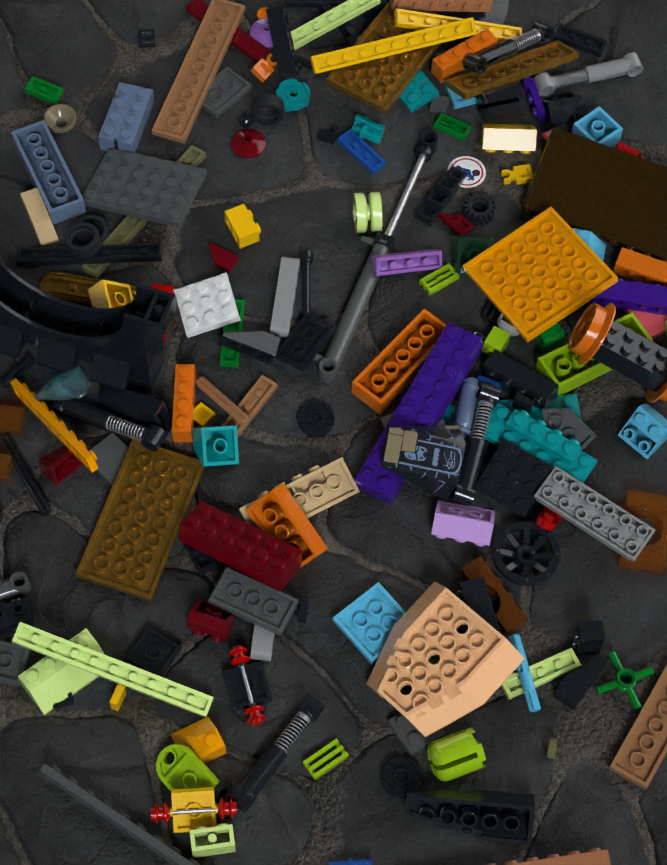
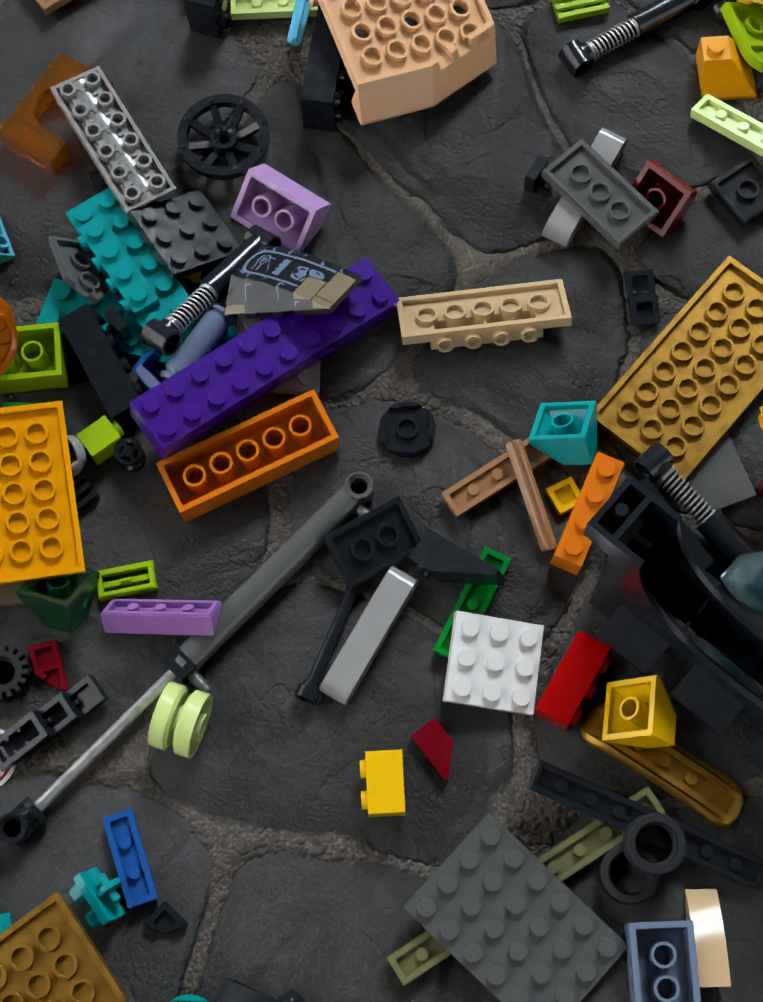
camera: 150 degrees left, 10 degrees up
(240, 545) = (590, 266): dark red brick -> none
(247, 686) = (643, 111): black plate -> none
(250, 148) = (321, 966): dark red dish -> none
(283, 518) = (517, 270): orange slope -> none
(369, 621) = (455, 131): medium azure plate -> none
(509, 616) = (297, 131): reddish brown arch -> none
(548, 519) = (176, 164): red plate -> none

